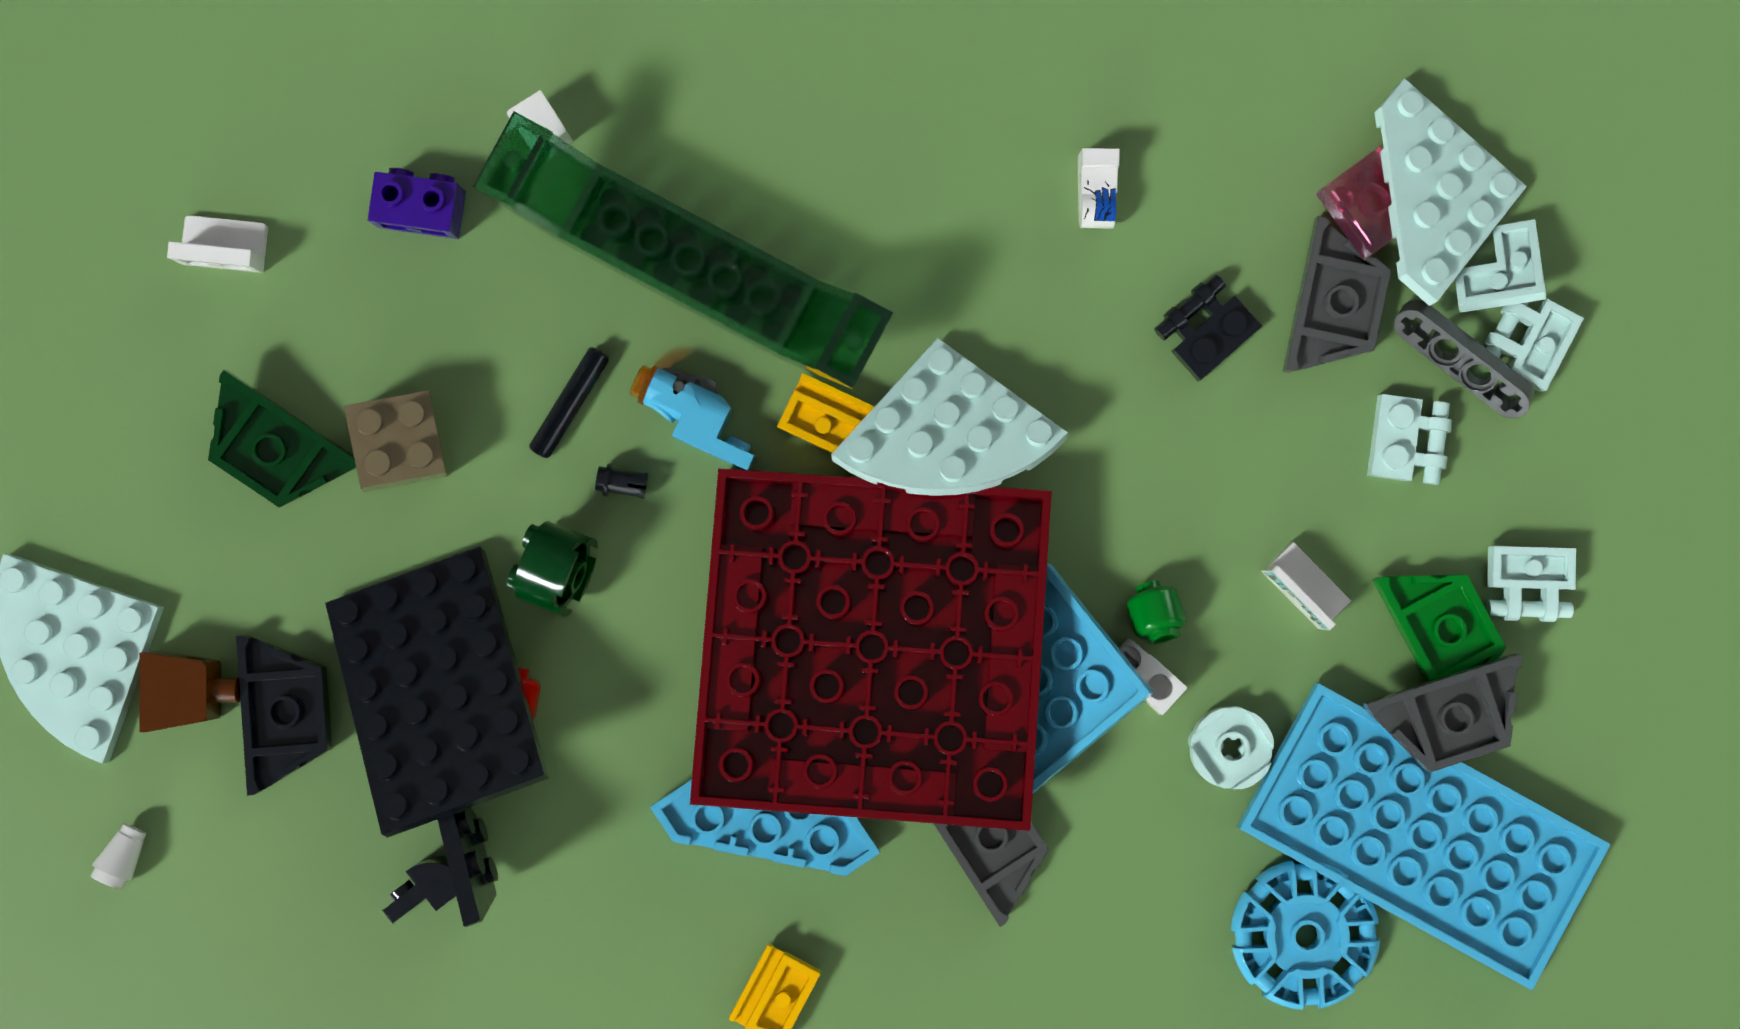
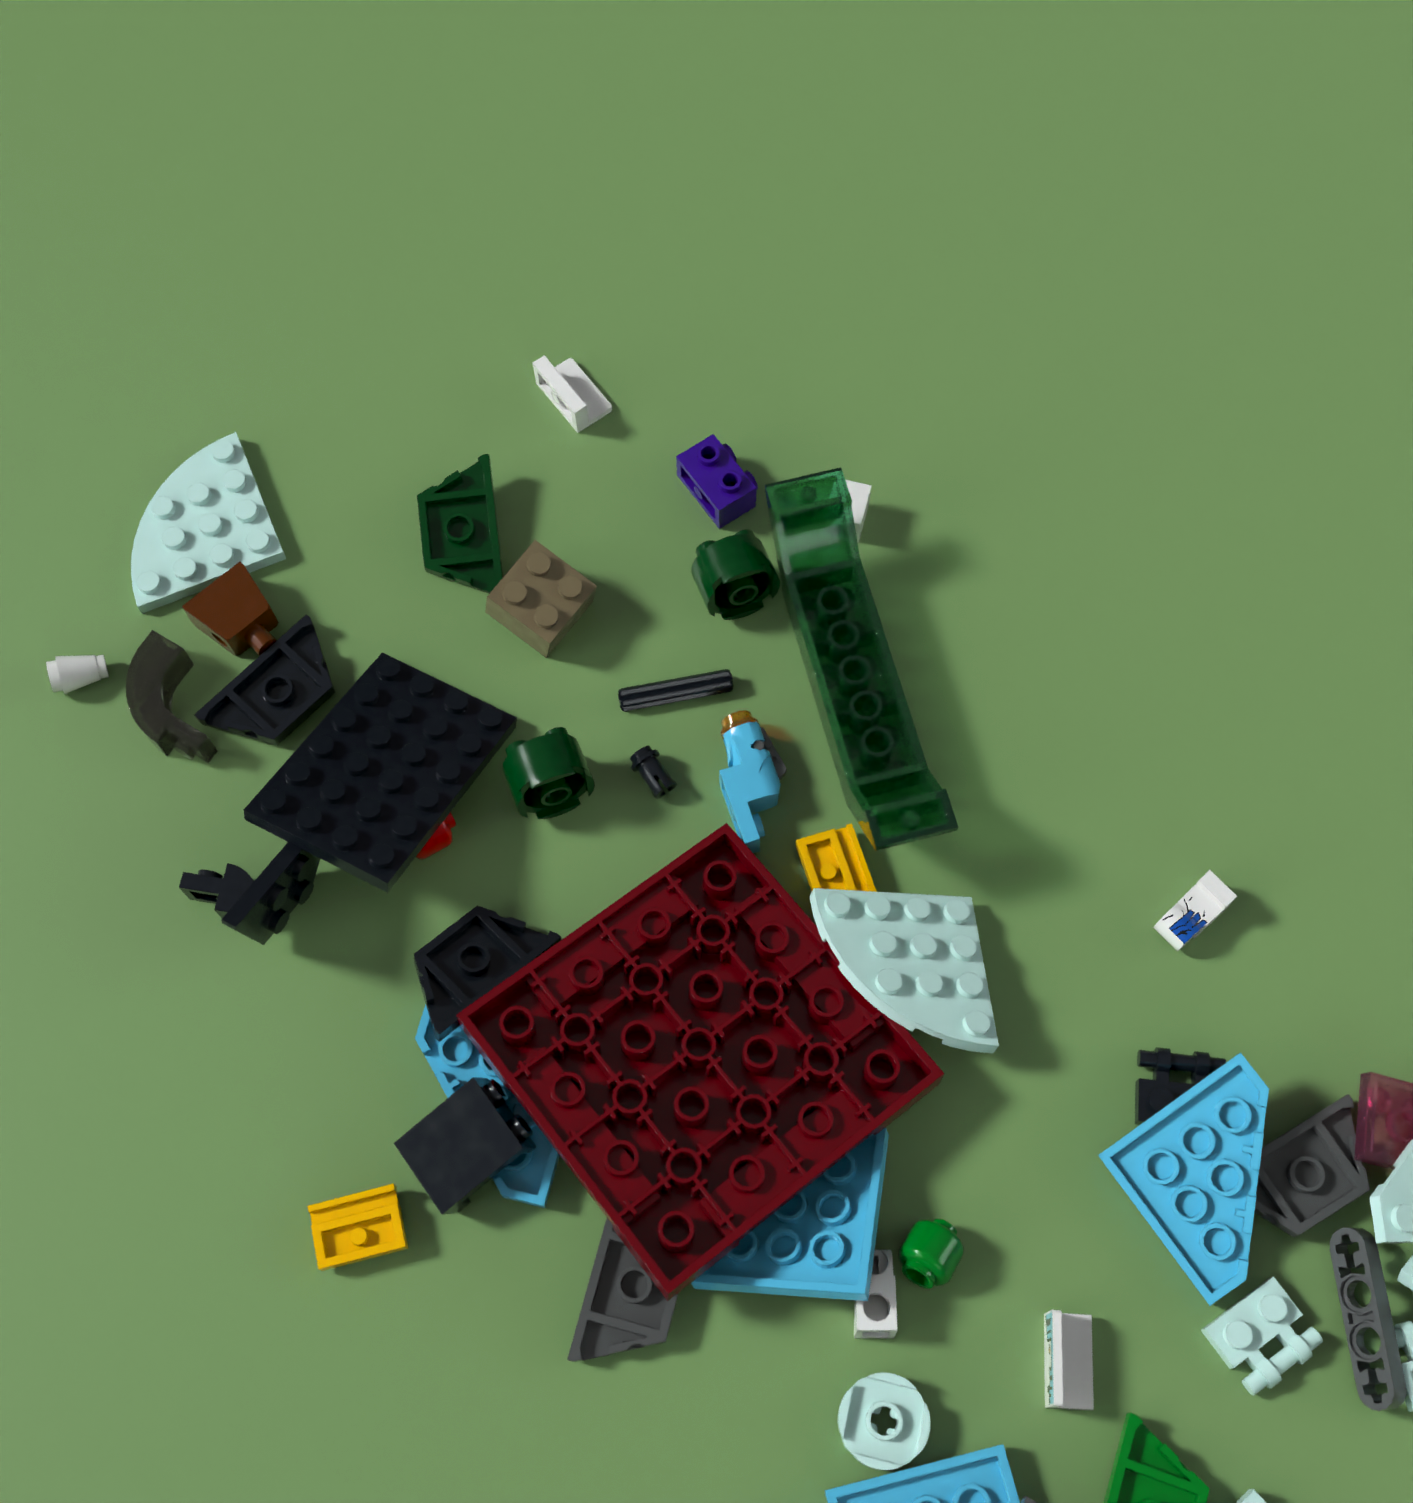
camera: 50 degrees right, 20 degrees down
(193, 814) = (150, 688): none -> clear smoke arch
(517, 271) = (734, 575): none -> dark green brick
(655, 748) = (473, 960): none -> black wing
(787, 872) = (465, 1143): none -> black panel
(1274, 378) = (1198, 1173): none -> medium azure plate

